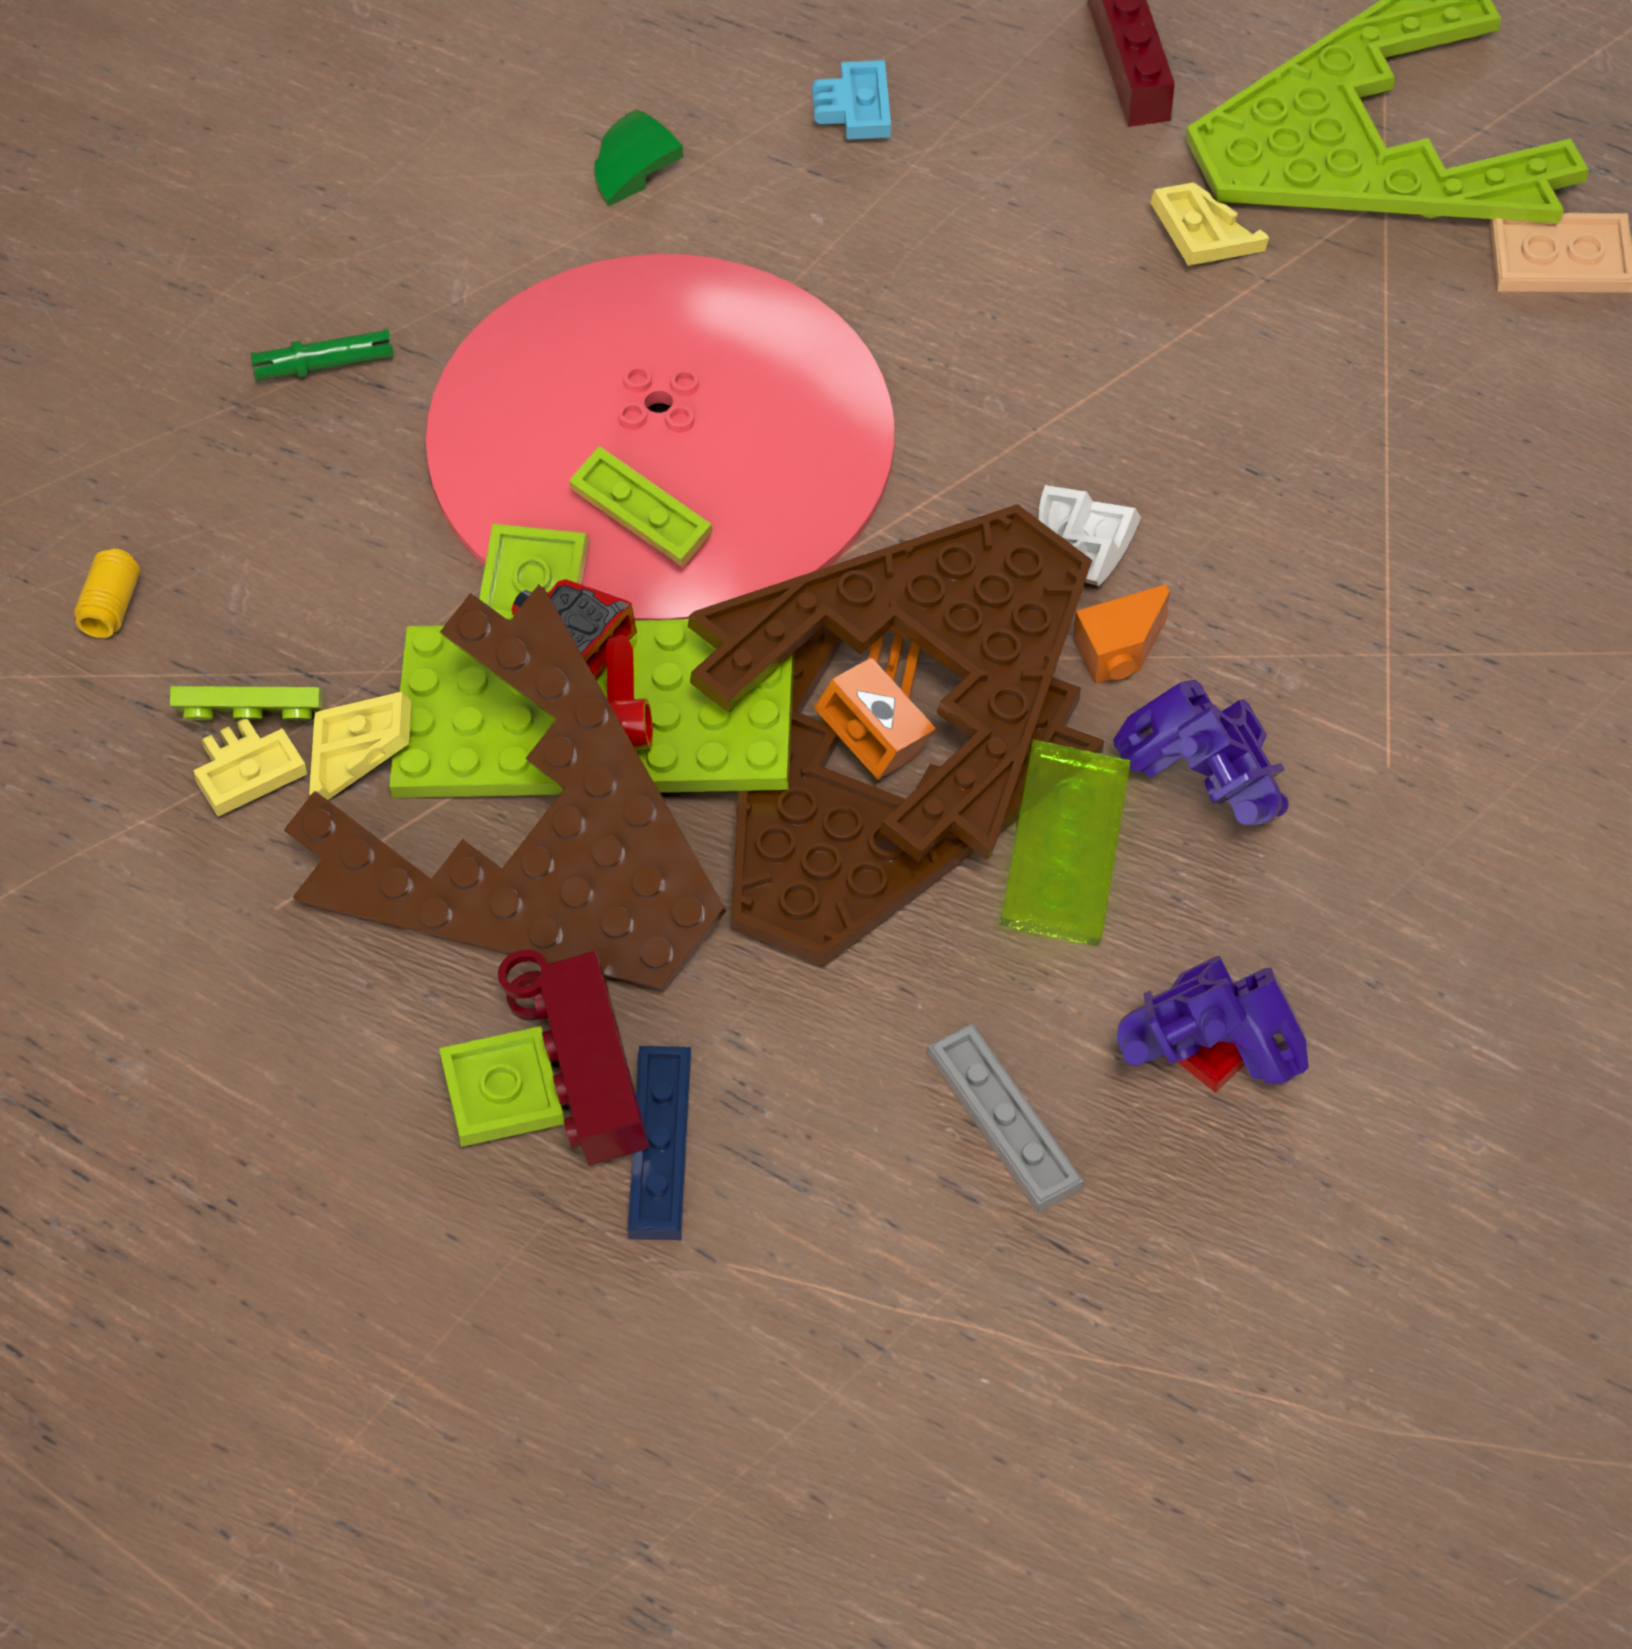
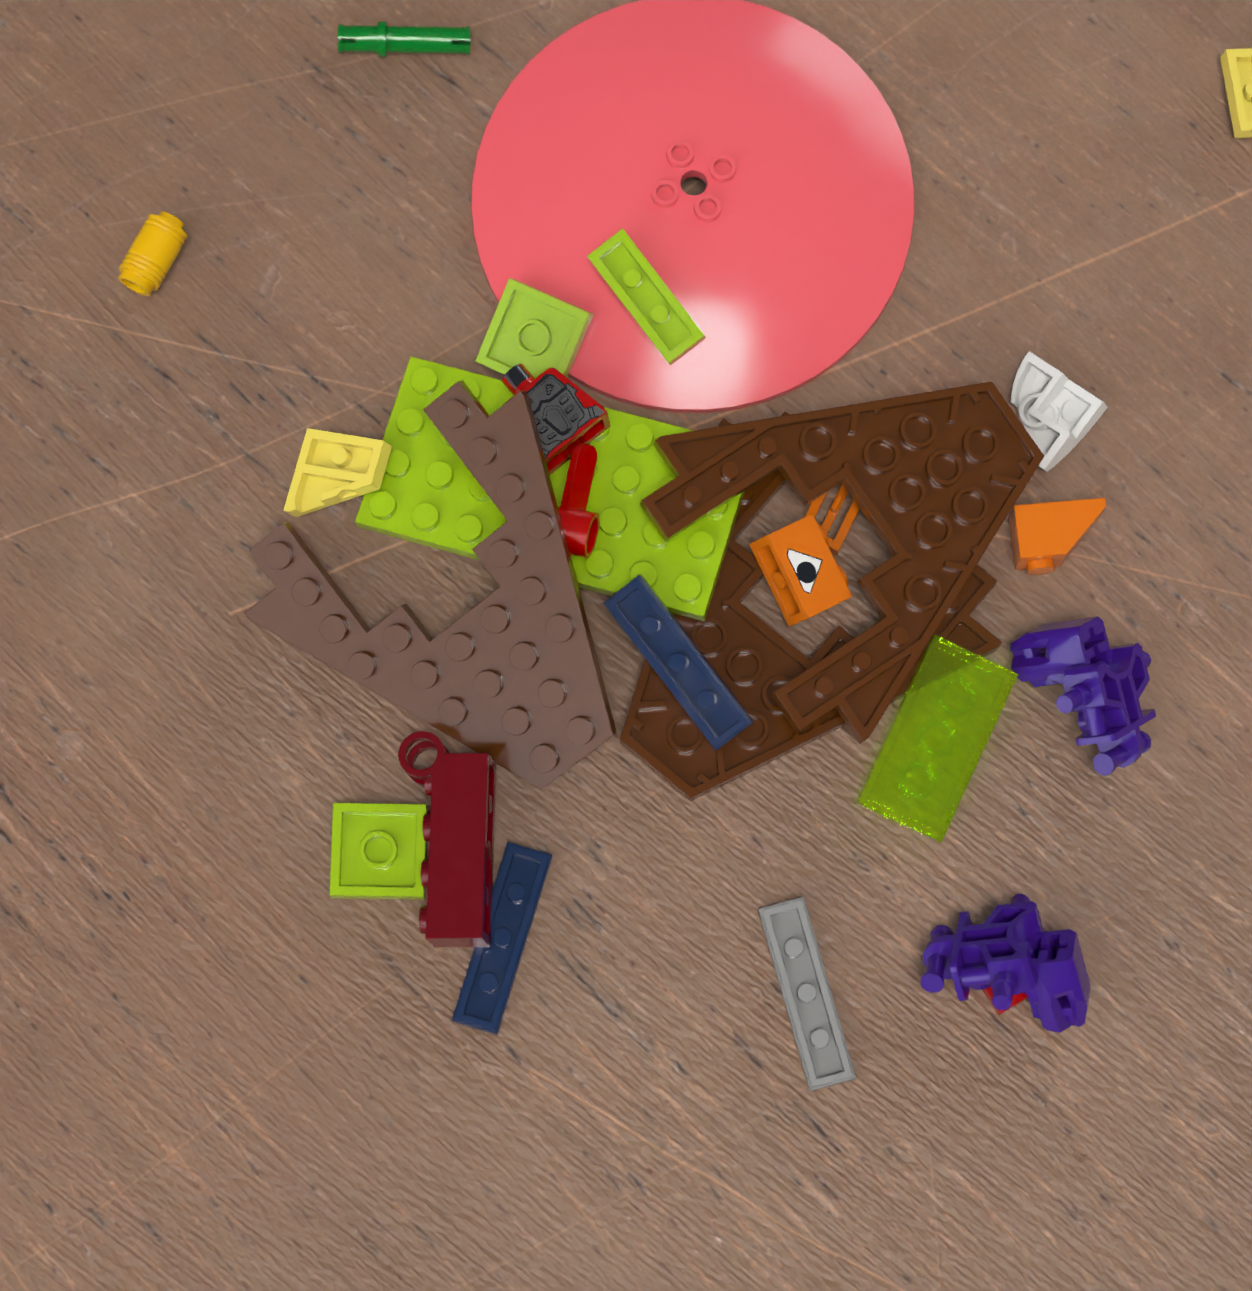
camera: 15 degrees right, 20 degrees up
(246, 767) = (234, 468): light yellow hinge -> none
(247, 702) = (250, 401): lime plate -> none
(774, 825) = (678, 662): none -> dark blue tile

